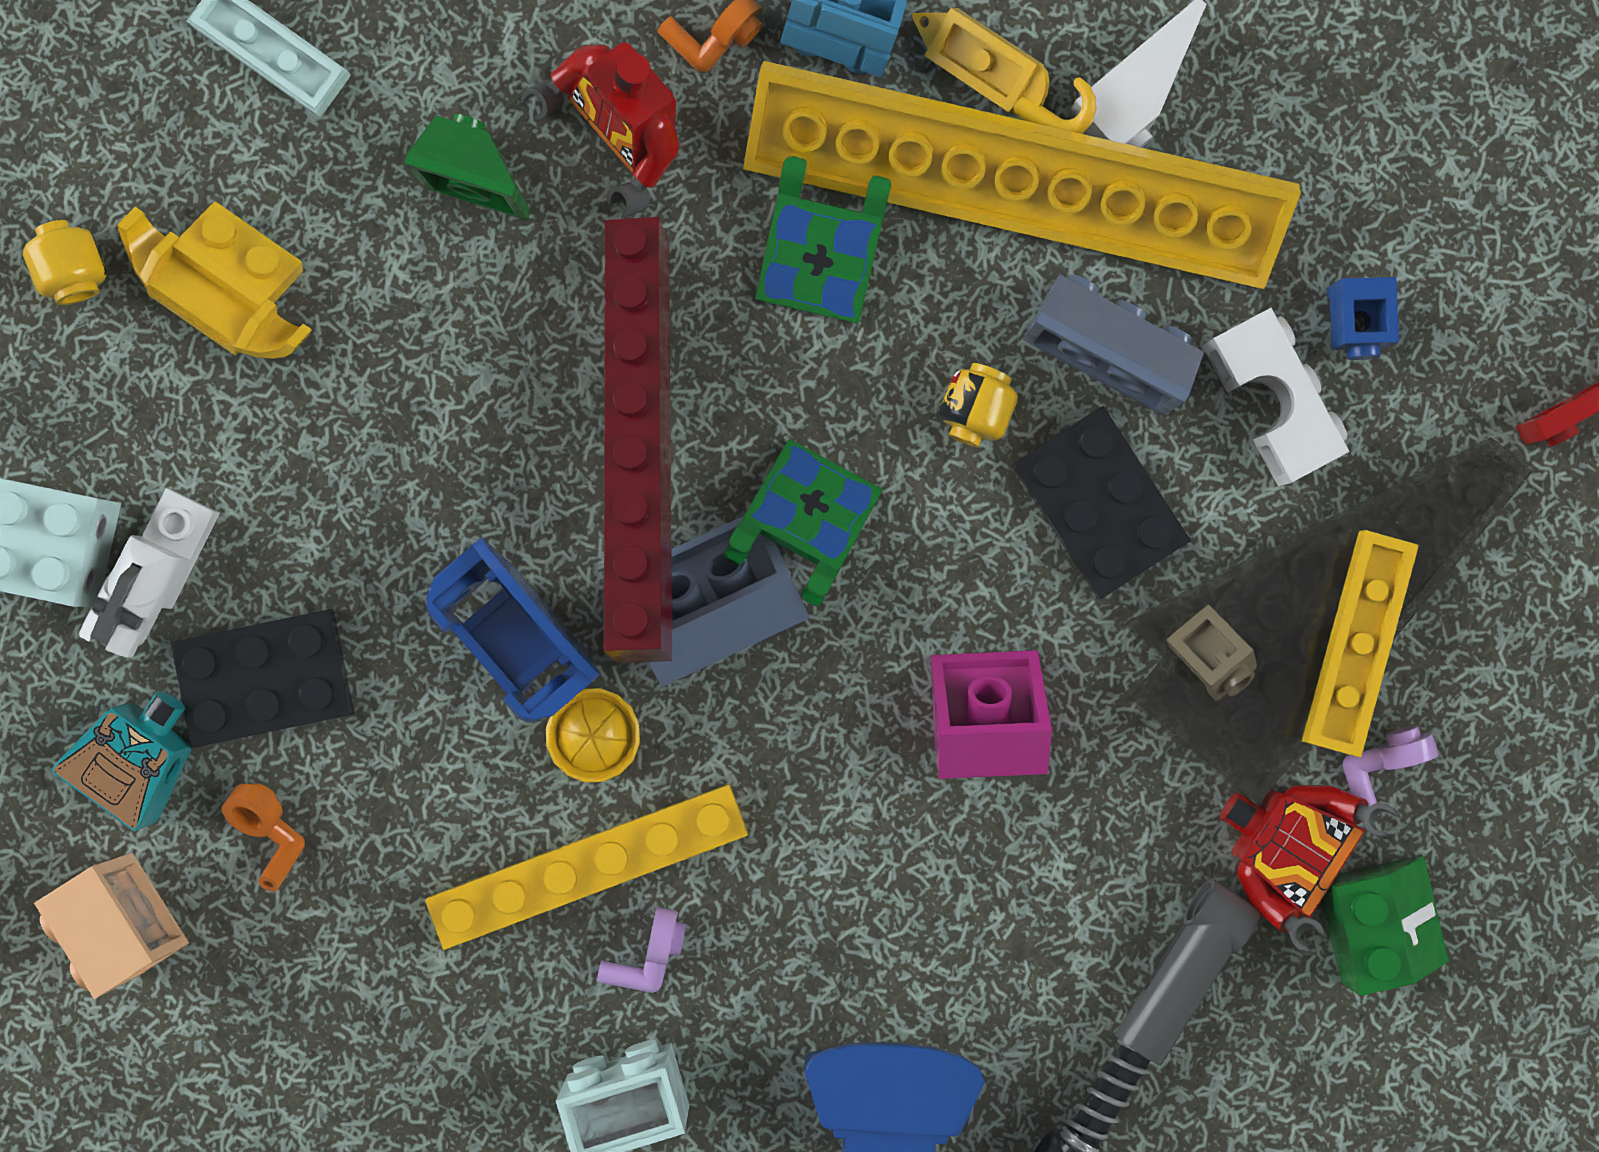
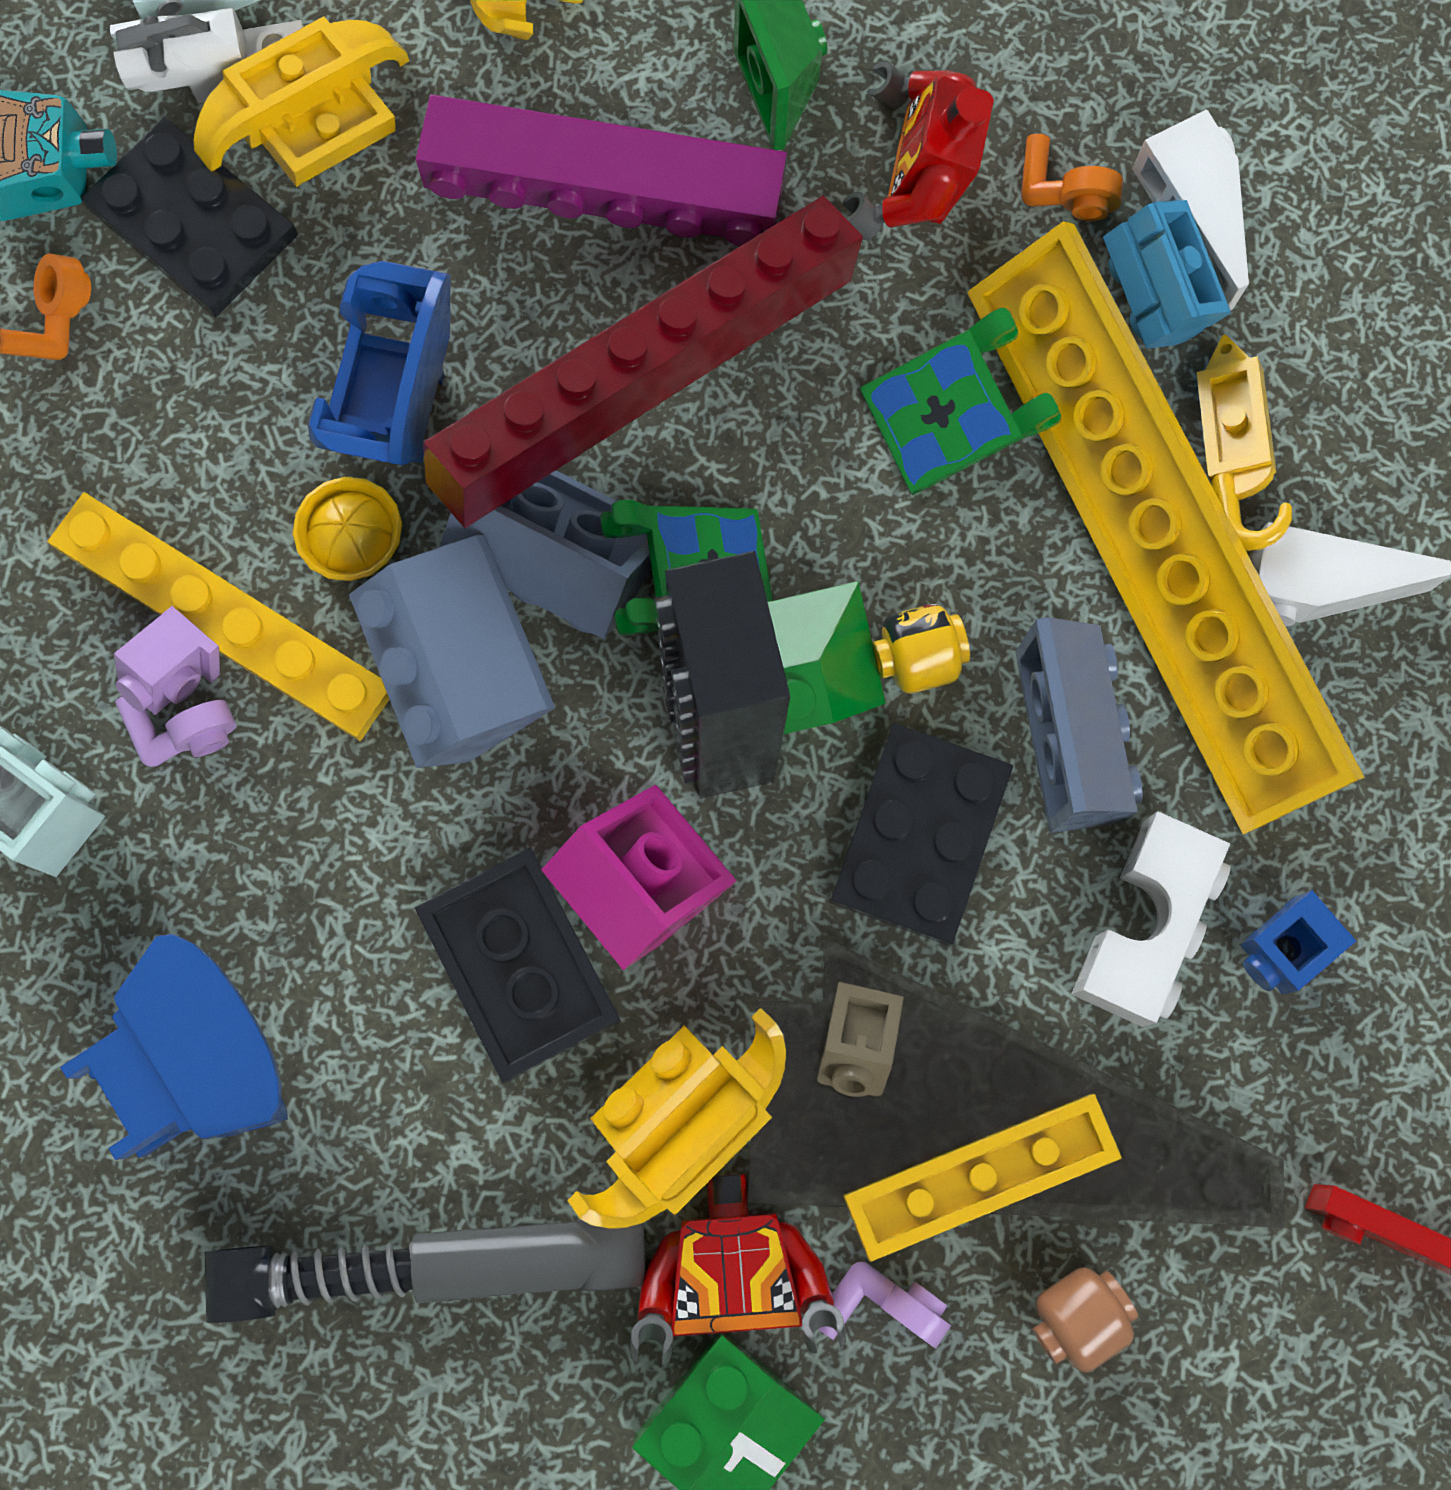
camera: 50 degrees right, 10 degrees down
(236, 532) = (302, 99): none -> yellow plate
(456, 359) = (599, 170): none -> magenta brick
(600, 930) = (165, 662): none -> lavender brick
(744, 730) = (451, 652): none -> sand blue slope
(930, 488) = (826, 656): none -> green slope
(945, 576) = (722, 674): none -> black brick
(987, 840) = (517, 965): none -> black plate
(1178, 811) = (681, 1123): none -> yellow plate
(1491, 644) = (1084, 1319): none -> nougat head

